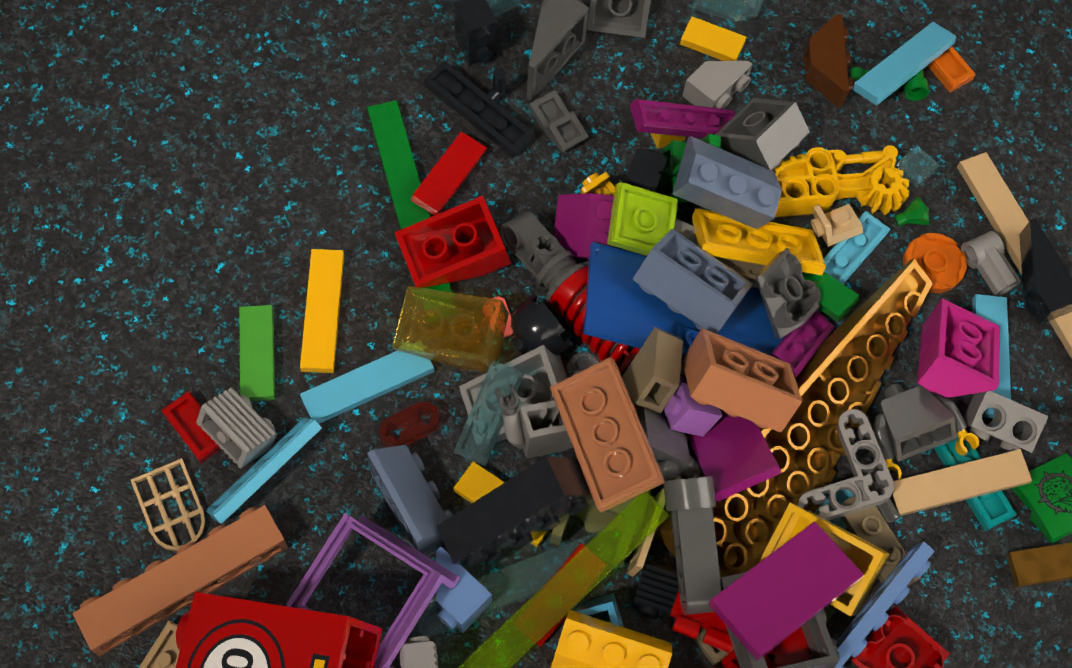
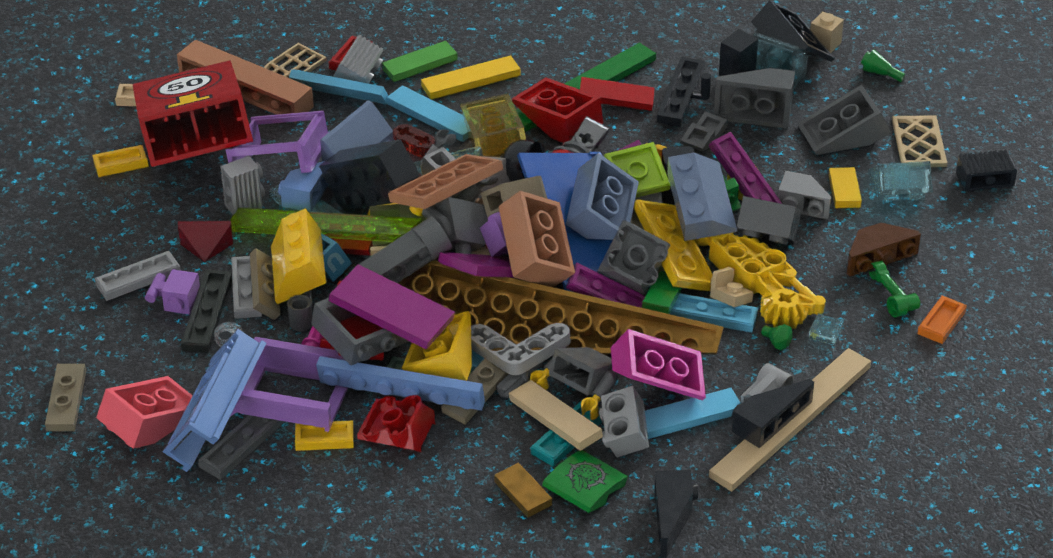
camera: 70 degrees right, 25 degrees down
(904, 63) = (909, 284): medium azure tile -> none
(938, 259) = (742, 361): orange tile -> none

